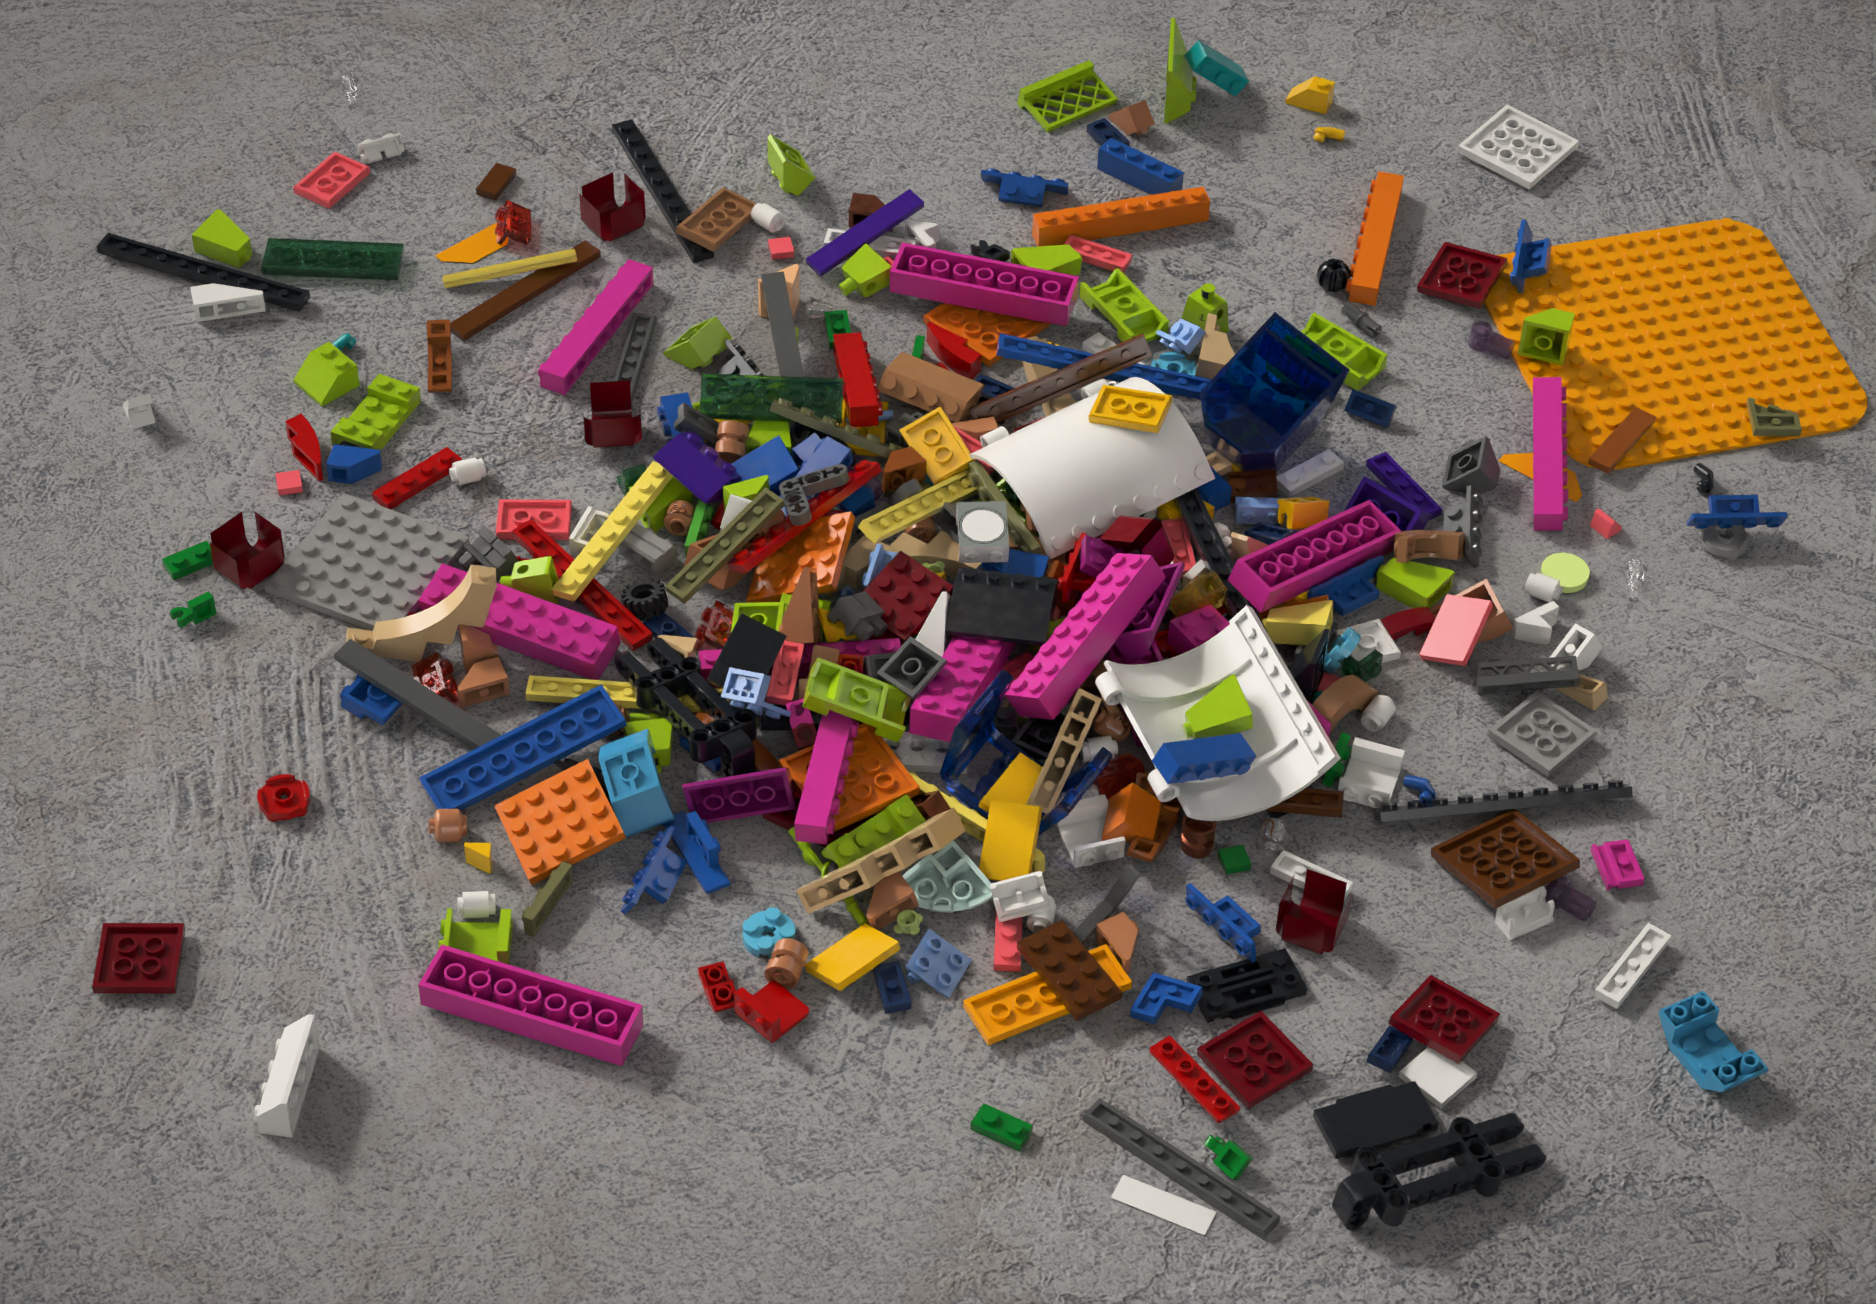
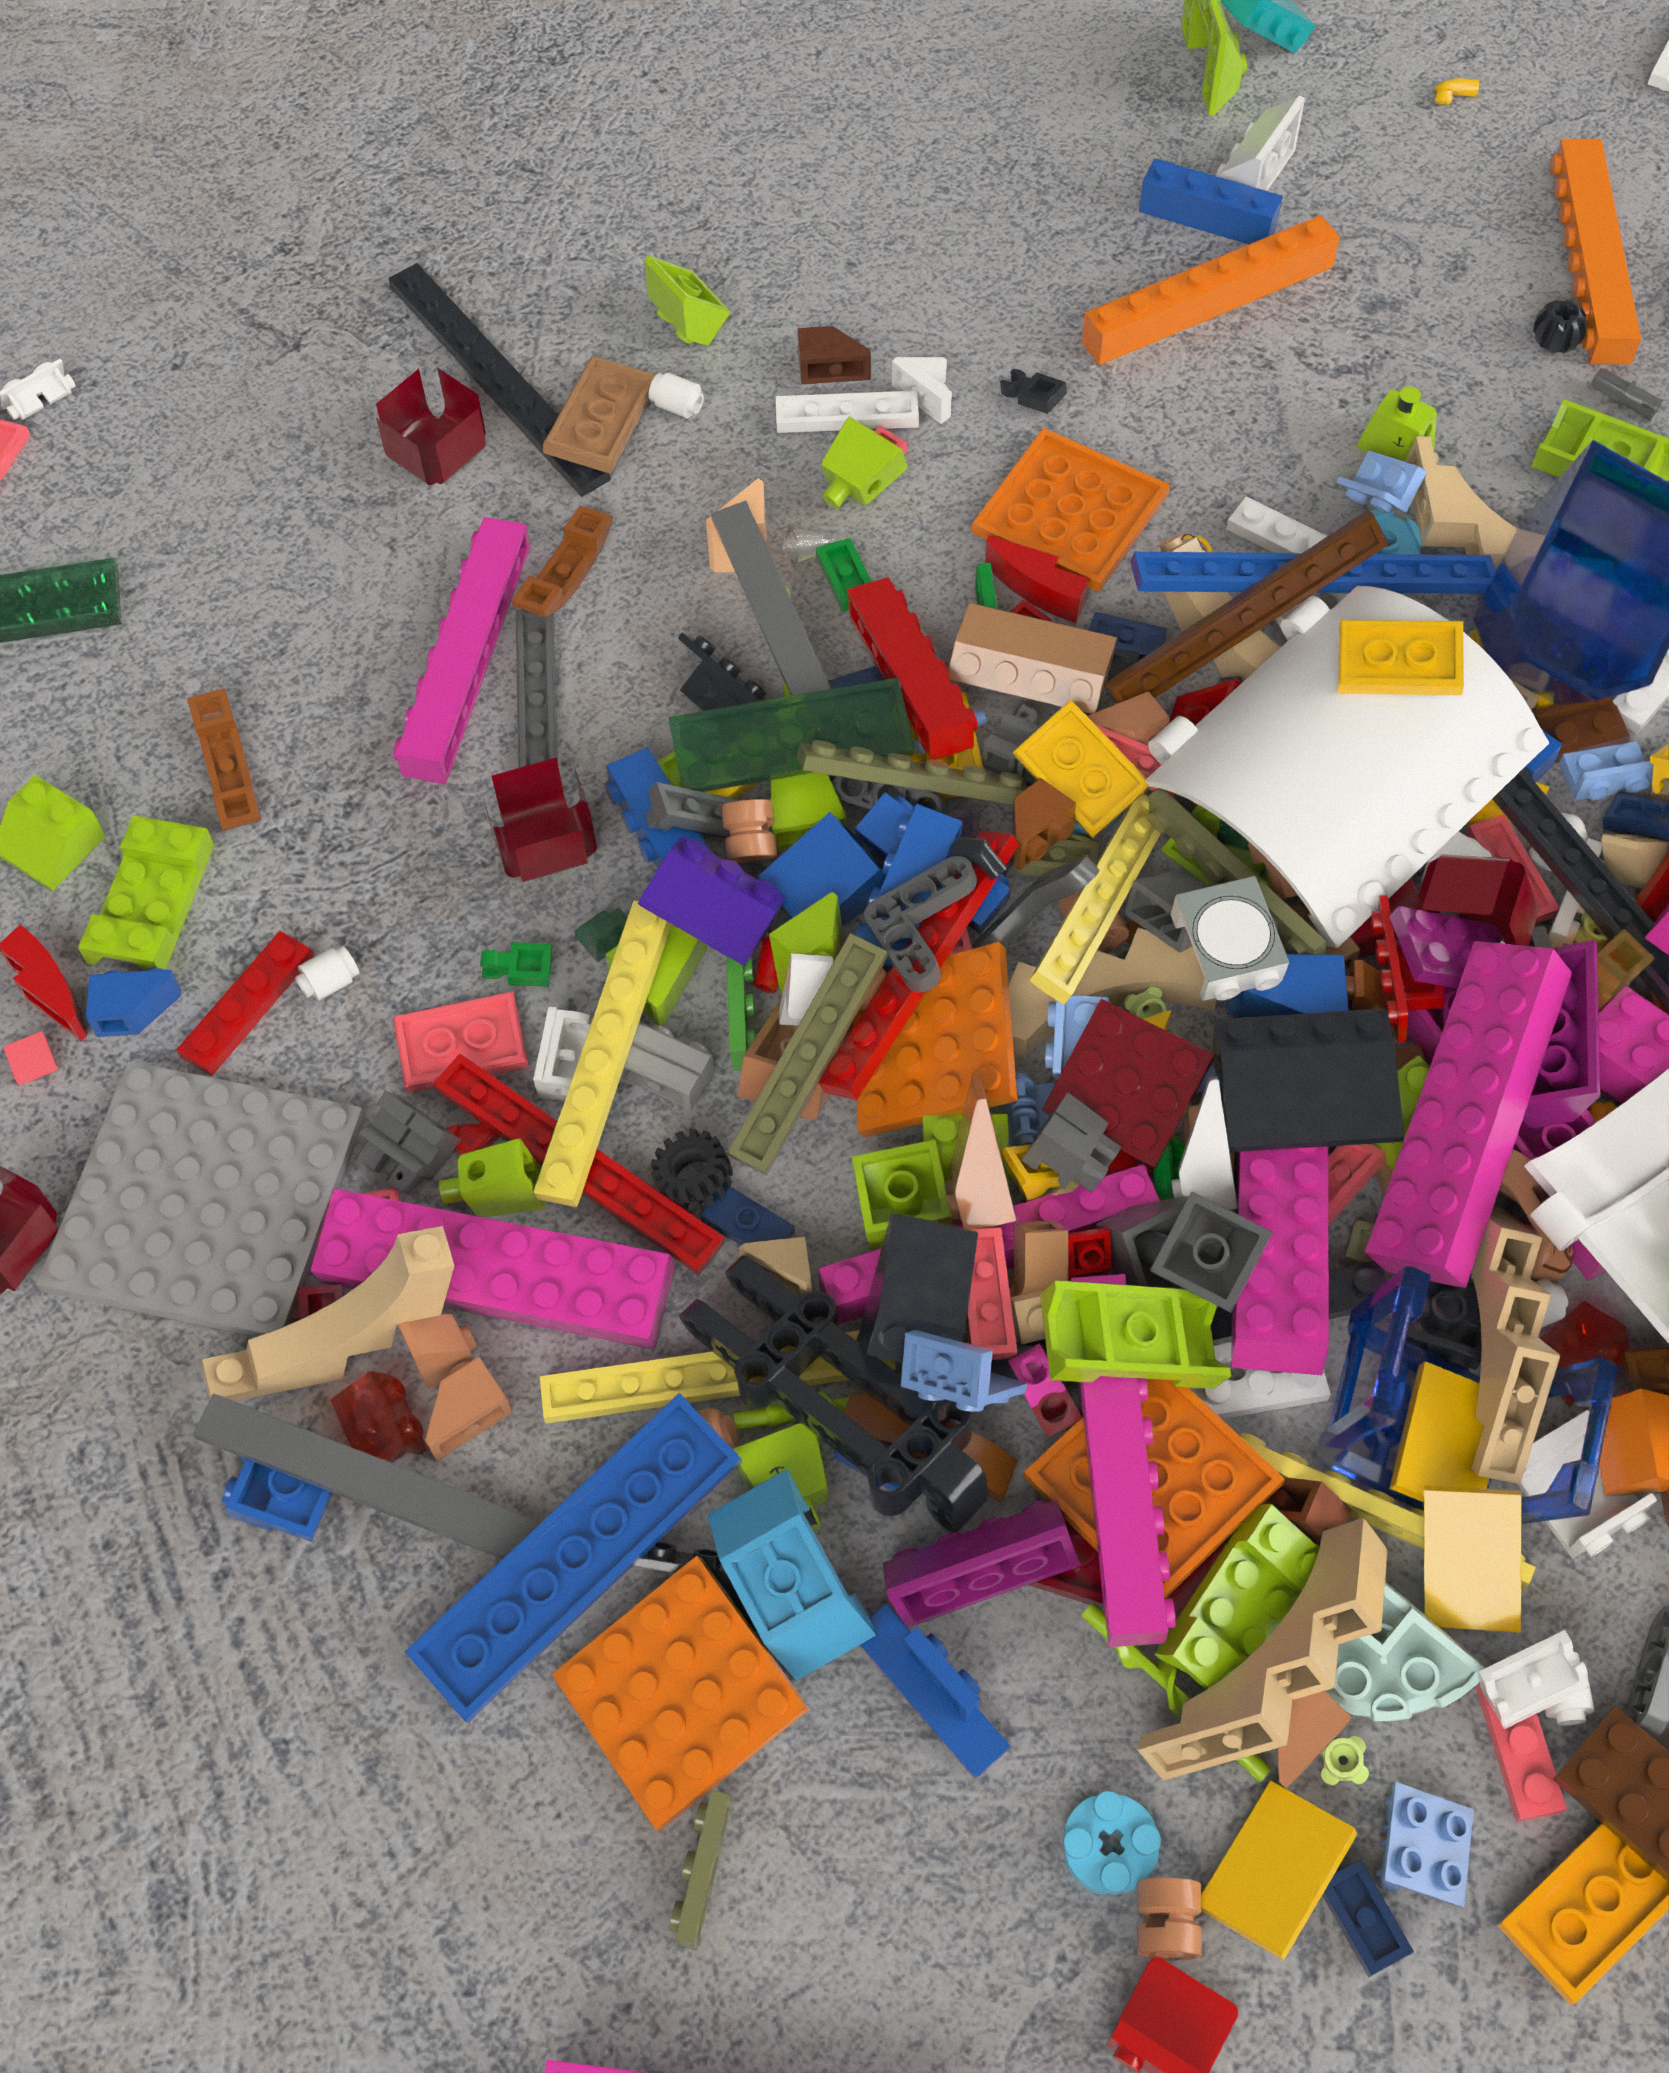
camera: 10 degrees left, 15 degrees up
(270, 798) = (194, 1764): red plate -> none
(345, 340) = (55, 764): teal arm -> none
(448, 825) = (483, 1745): nougat head -> none
(473, 247) = (234, 531): light orange sticker -> none
(476, 904) = (579, 1914): white brick -> none
(479, 856) = (557, 1798): yellow slope -> none
(480, 938) = (599, 1998): lime panel -> none
(496, 181) = (233, 412): reddish brown tile -> none
(509, 268) = (296, 569): light yellow axle -> none
(513, 222) = (281, 484): clear red bracket -> none
(521, 293) = (328, 604): reddish brown tile -> none
(581, 488) = (525, 964): none -> green plate
(659, 873) = (878, 1760): blue bracket -> none
(672, 297) = (568, 565): none -> dark orange slope
(679, 518) = (703, 992): nougat head -> none
(699, 344) = (636, 647): lime slope -> none
(716, 625) = (827, 1198): clear red bracket -> none
(717, 986) = (1061, 1995): red slope -> none
(781, 248) = (711, 444): coral tile -> none
(854, 465) = (980, 854): none -> black arm
(864, 232) = (837, 395): dark purple tile -> none
(984, 284) = (1056, 453): dark pink brick -> none
(1023, 189) = (1046, 269): blue bracket -> none
(1051, 258) = (1125, 394): lime slope -> none
(1056, 86) = (1039, 86): lime fence -> none
(1099, 254) = (1194, 360): coral plate -> none
(1103, 130) = (1135, 151): dark blue plate -> none
(1125, 307) = (1275, 447): lime piece -> none
(1133, 118) = (1167, 118): nougat slope -> none
(1187, 146) = (1265, 146): none -> white slope
(1312, 95) = (1410, 30): yellow slope -> none

